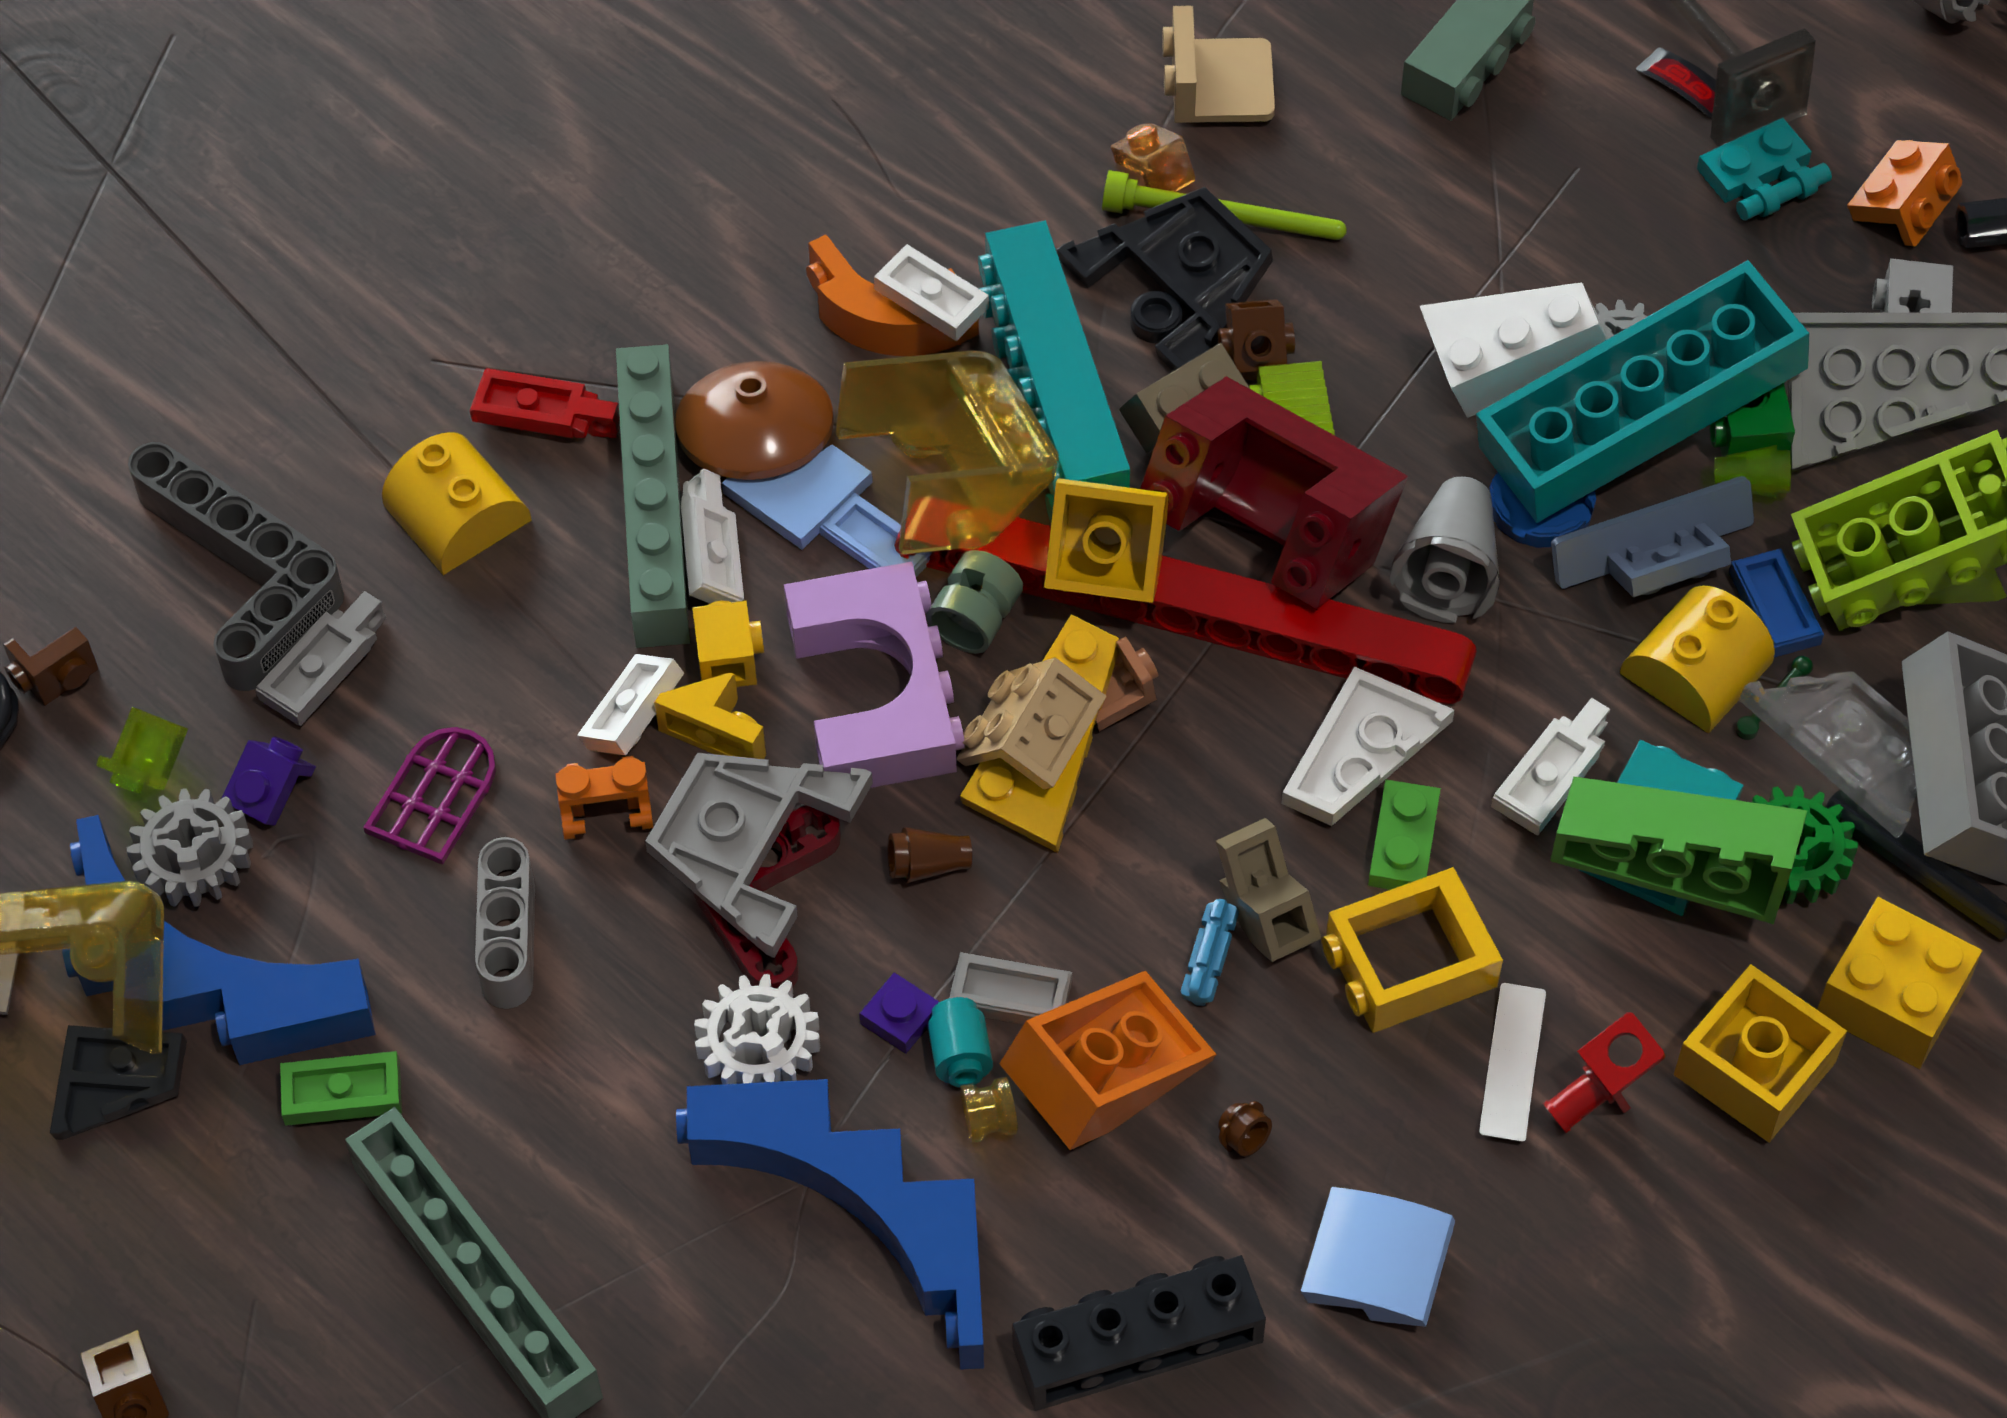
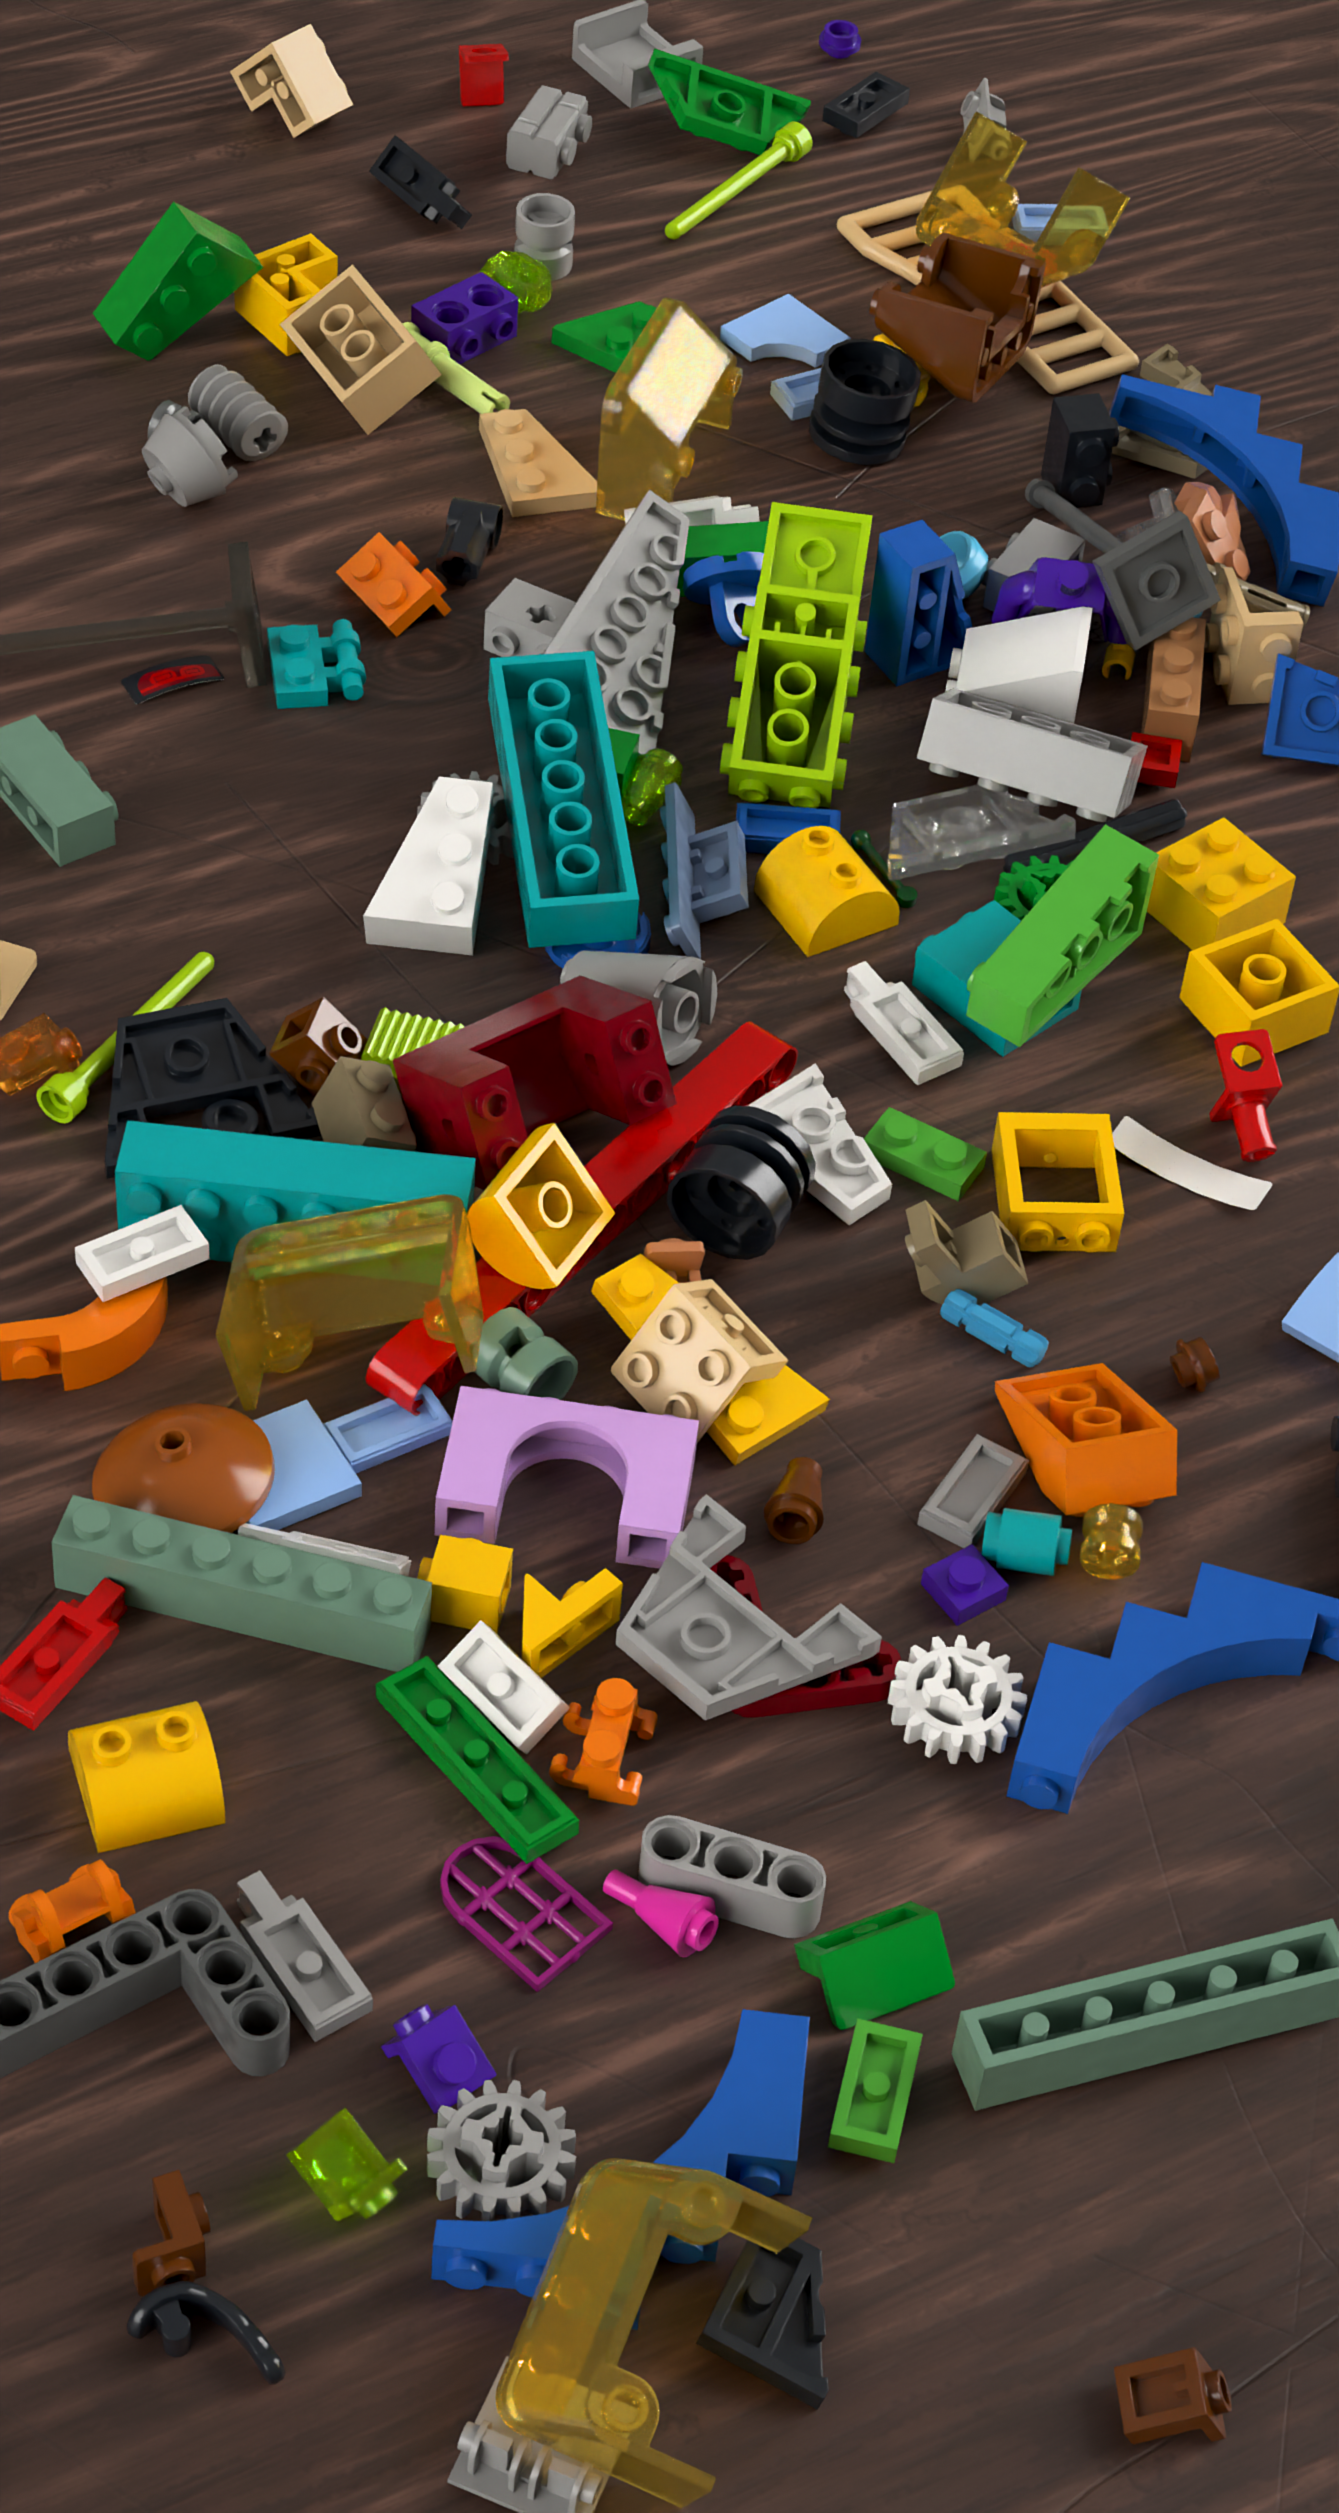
camera: 75 degrees left, 10 degrees down
(319, 508) = (45, 1917): none -> orange piece
(453, 900) = (678, 1917): none -> dark pink cone
(466, 1053) = (879, 1963): none -> green panel
(556, 715) = (477, 1759): none -> green tile
(1252, 689) = (741, 1182): none -> black wheel

